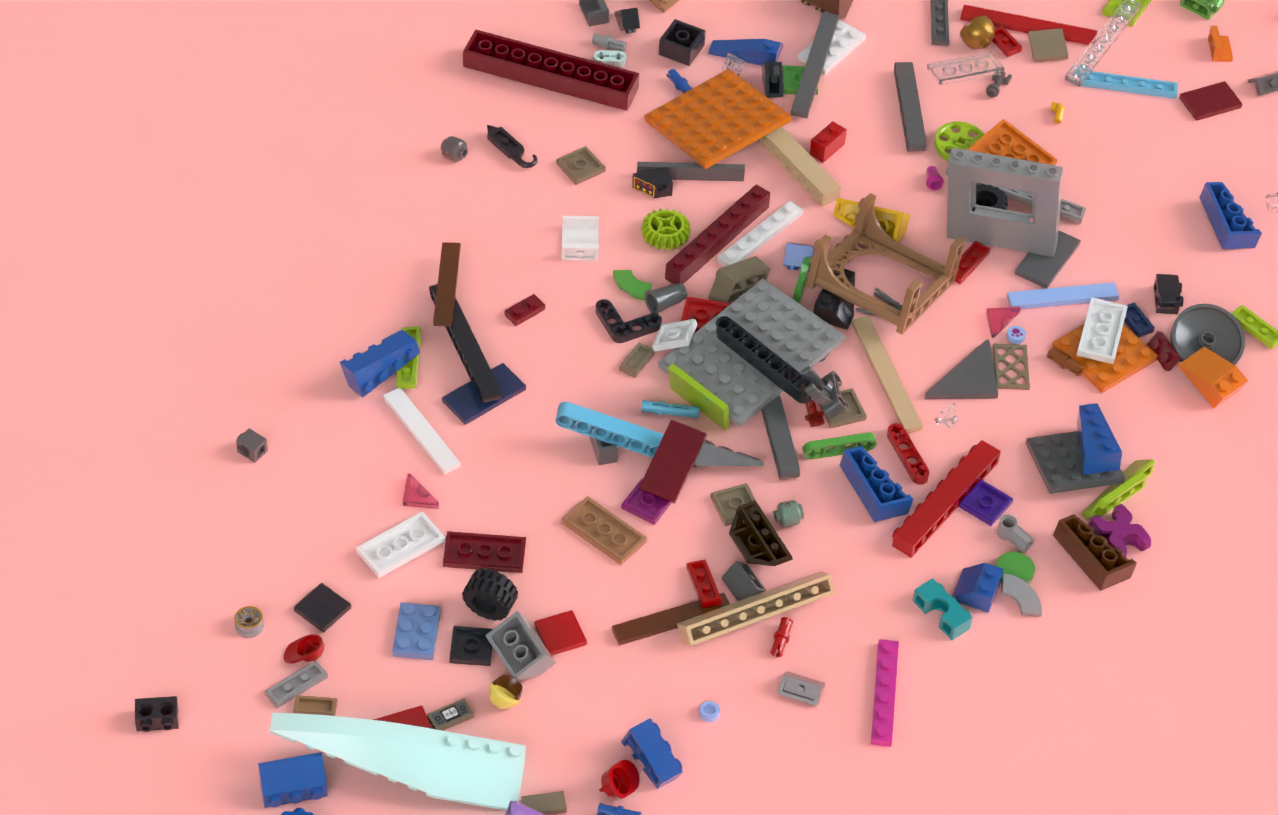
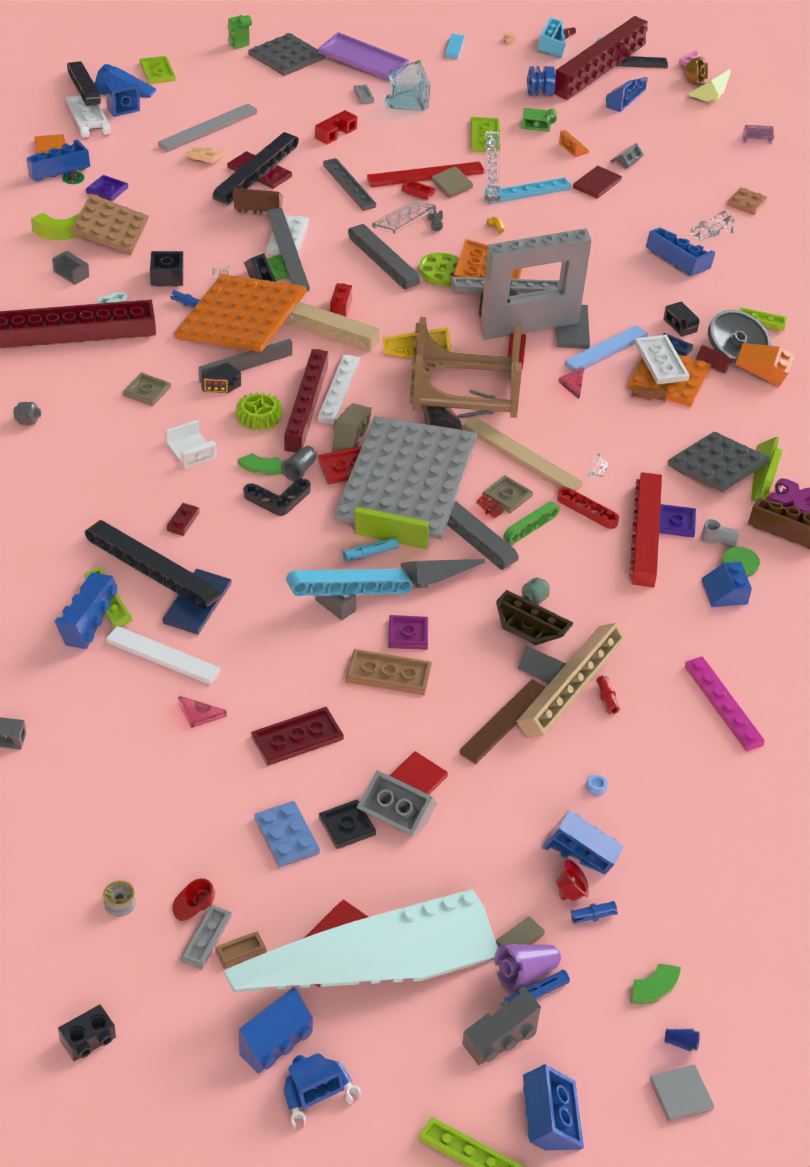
camera: 30 degrees left, 5 degrees down
(322, 607) = (181, 852): black tile -> none
(400, 544) = (216, 762): white plate -> none
(447, 284) = (103, 521): reddish brown tile -> none
(450, 715) = (375, 896): tile -> none
(490, 594) = (338, 767): black tyre -> none
(505, 692) = (413, 850): piece -> none
(509, 146) = (73, 395): black plate -> none
(608, 42) = (102, 289): light grey axle -> none
(628, 20) = (107, 267): black slope -> none
(636, 360) = (310, 522): dark tan tile -> none
(673, 461) = (413, 587): dark red tile -> none
(674, 335) = (331, 488): white tile -> none
(704, 583) = (510, 678): red tile -> none
(728, 500) = (480, 604): dark tan tile -> none
(750, 50) = (232, 255): blue wedge -> none
(762, 359) = (429, 474): black beam -> none
(796, 253) = (388, 390): slope -> none
(801, 282) = (401, 404): bright green tile -> none
(801, 688) = (658, 730): panel -> none
(825, 391) = (495, 483): dark grey piece -> none
(873, 486) = (585, 541): blue wedge -> none
(933, 180) = (444, 300): dark pink cone -> none
(934, 597) = (703, 608): teal arch -> none
(969, 379) = (588, 433): dark grey tile -> none
(979, 33) = (397, 189): pearl gold cylinder -> none
(1012, 384) = (625, 415): dark tan window -> none
(1016, 335) = (595, 389): light blue tile -> none
(1022, 594) = (767, 578): light grey tile -> none
(1097, 443) = (729, 436): blue wedge -> none

